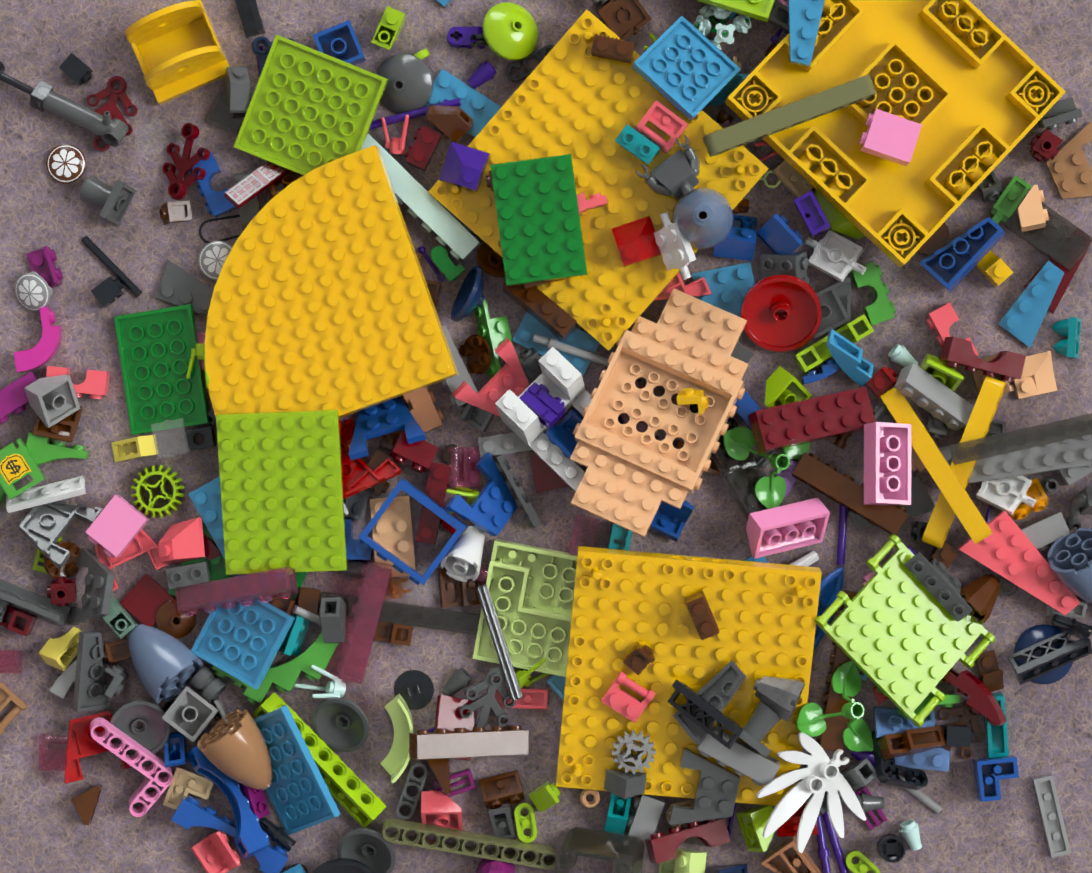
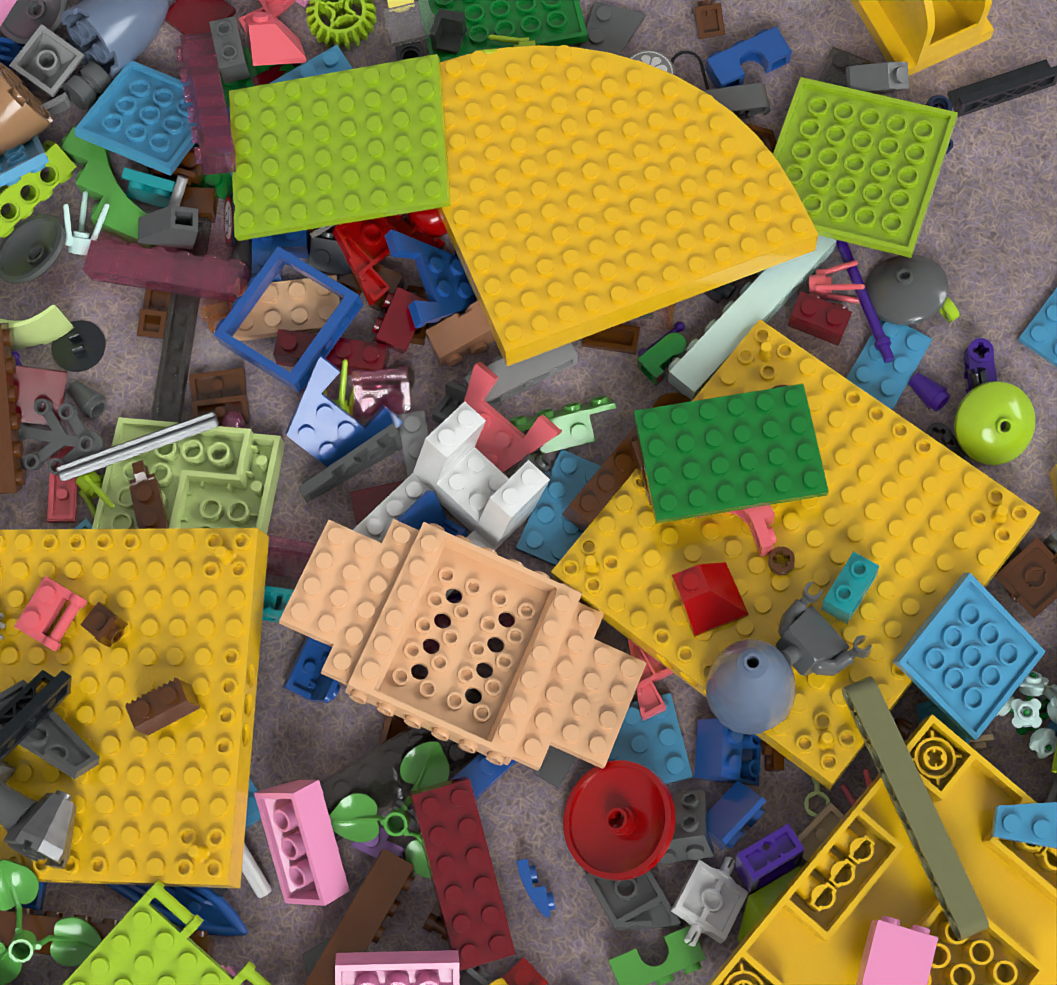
camera: 95 degrees right, 15 degrees down
(165, 617) = (161, 53): reddish brown dish -> none
(179, 185) = (740, 14): dark red plant -> none
(184, 408) = (448, 31): none -> pearl dark grey panel
(255, 183) = (752, 102): tile -> none
(325, 576) = (229, 210): none -> piece
(340, 43) = (953, 204): blue brick -> none
(389, 28) = (980, 265): lime slope -> none
(450, 120) = (861, 344): reddish brown slope -> none
(464, 166) = (798, 360): dark purple slope -> none
(465, 556) = (258, 395): white cone -> none
(469, 295) = (618, 383): dark blue dish -> none
(477, 354) = (543, 401): reddish brown dish -> none
(542, 634) = (147, 499): none -> reddish brown hinge
(543, 404) = (467, 479): dark purple brick -> none
(553, 342) = (557, 500): light grey bar -> none
(608, 186) = (775, 567): none -> reddish brown bush
(612, 48) = (987, 545): reddish brown brick -> none
(666, 121) = (888, 626): coral plate -> none
(674, 247) = (703, 646): white plate -> none
(692, 396) = (486, 682): yellow bracket -> none
(784, 389) = (507, 833): lime slope -> none
(819, 351) = (578, 903): lime arch -> none
(842, 535) = (299, 932): dark purple bar -> none
(849, 358) = (557, 926): dark azure slope -> none

